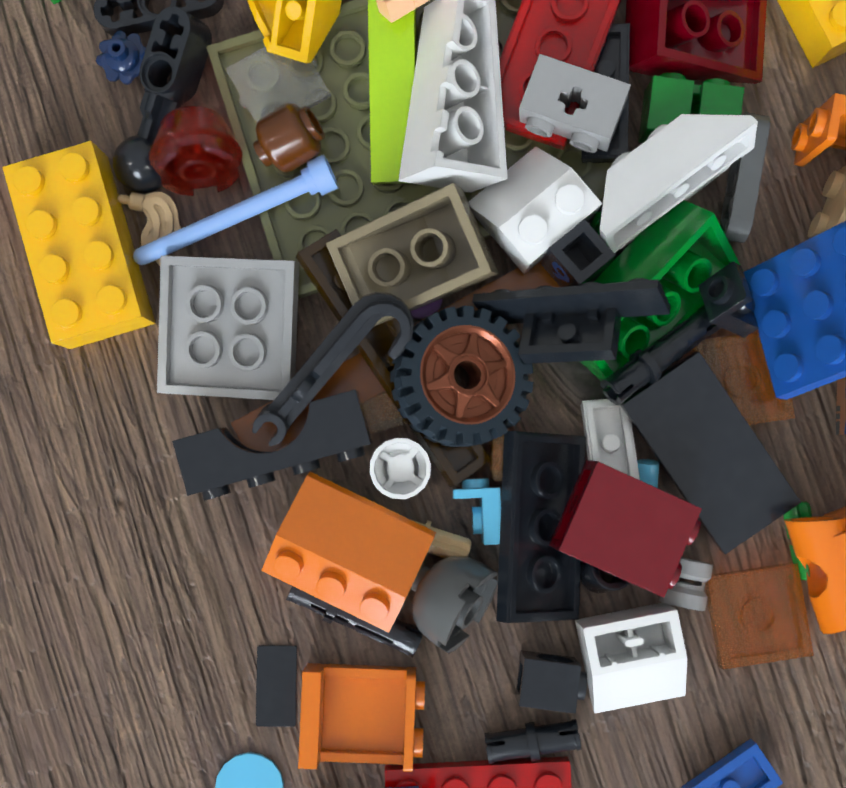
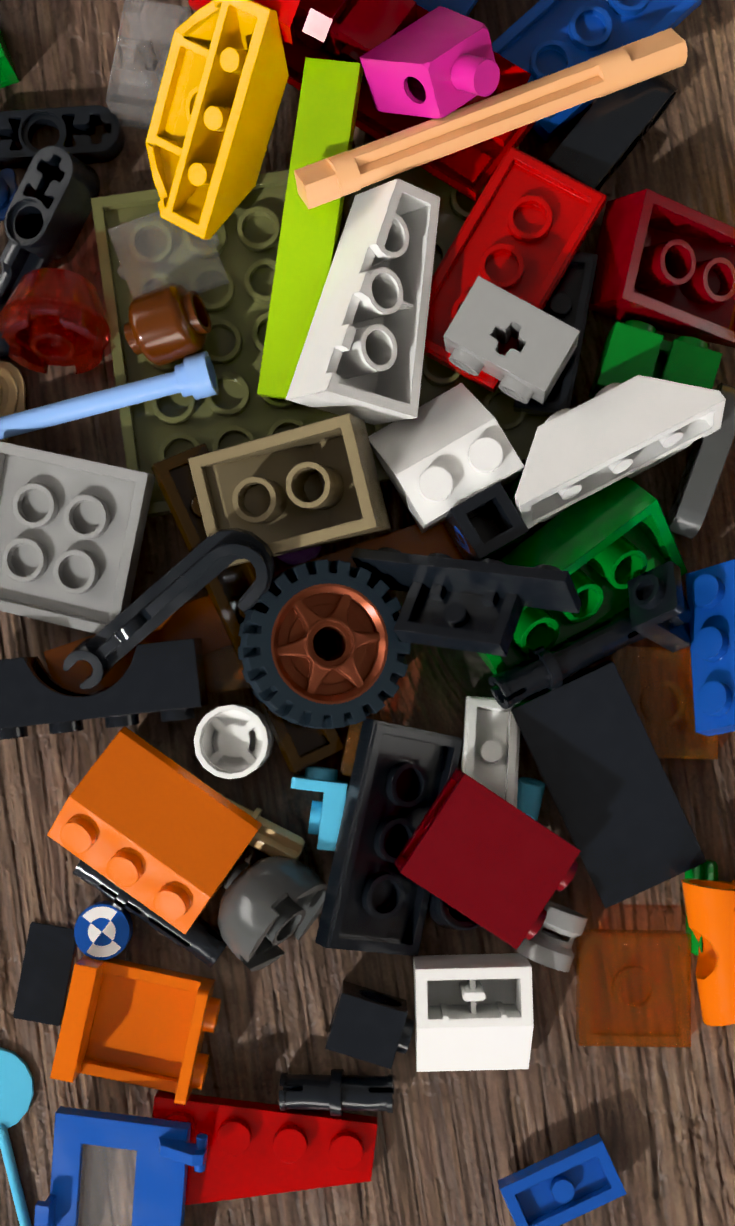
camera: 10 degrees right, 0 degrees up
(318, 642) = (103, 930): none -> blue tile

